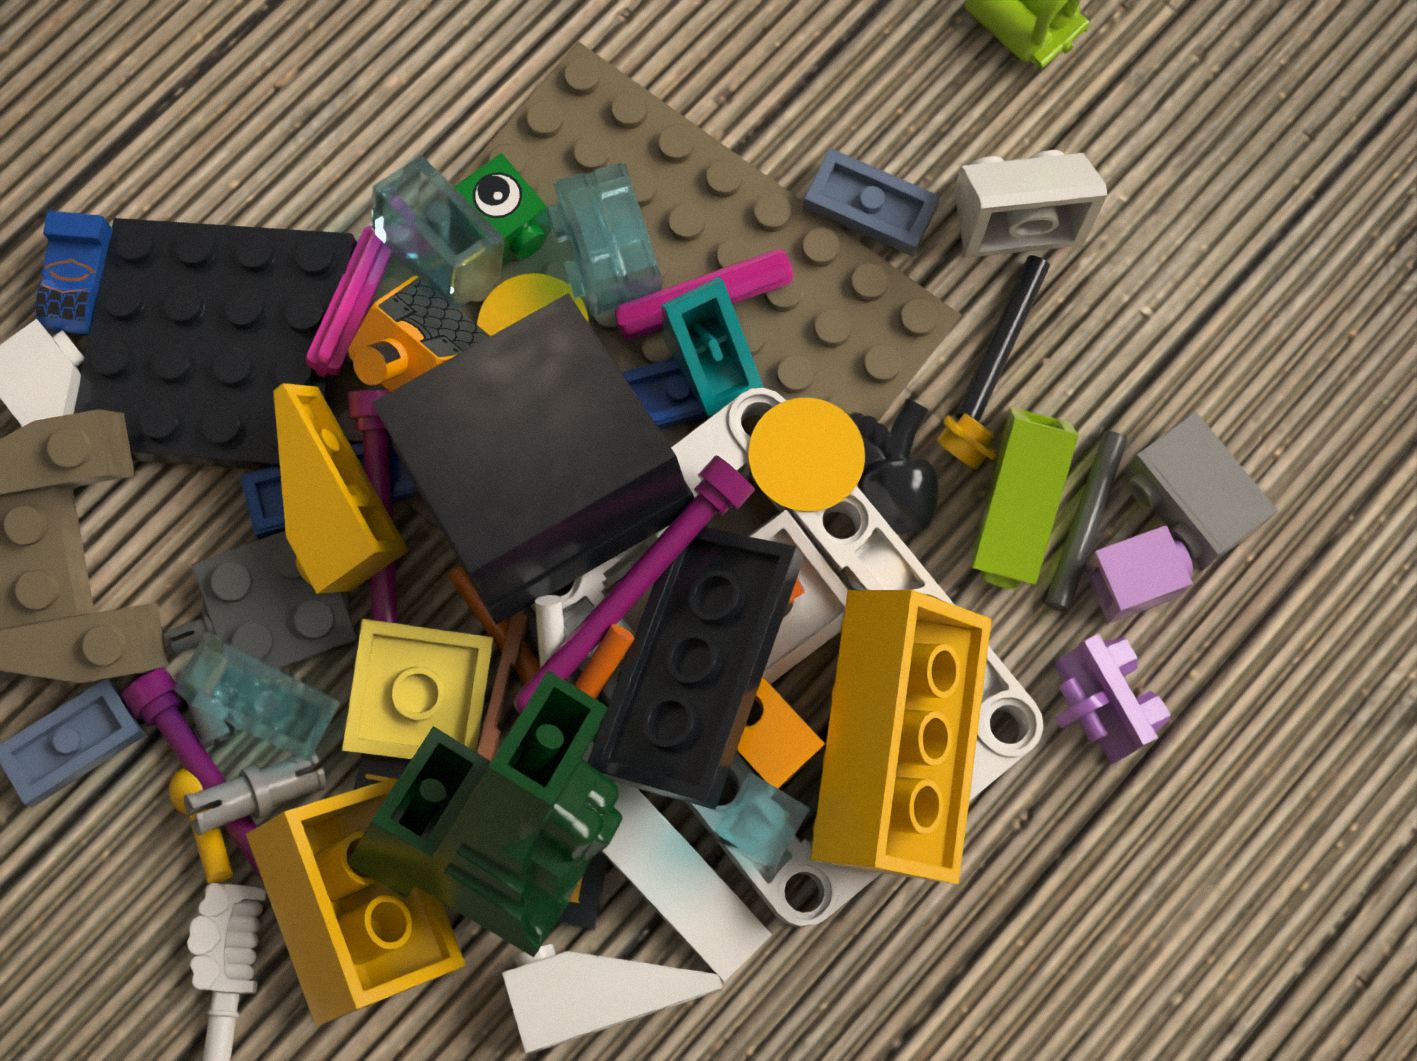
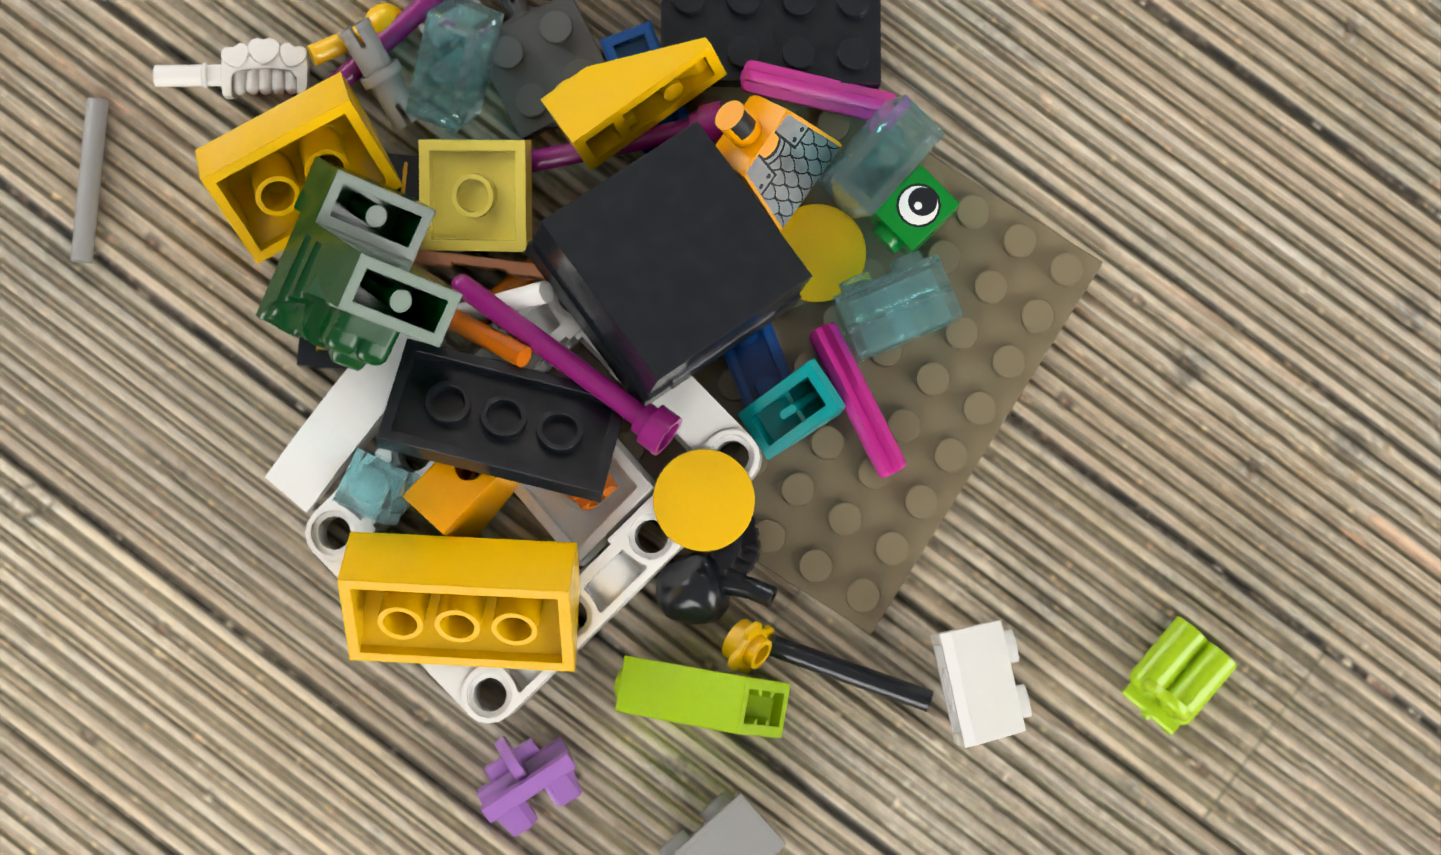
camera: 85 degrees right, 10 degrees up
(585, 993) = (243, 369): white slope -> none
(871, 202) = (968, 543): sand blue plate -> none
(1086, 521) = (689, 757): dark grey bar -> none
(1139, 573) = (640, 806): lavender brick -> none

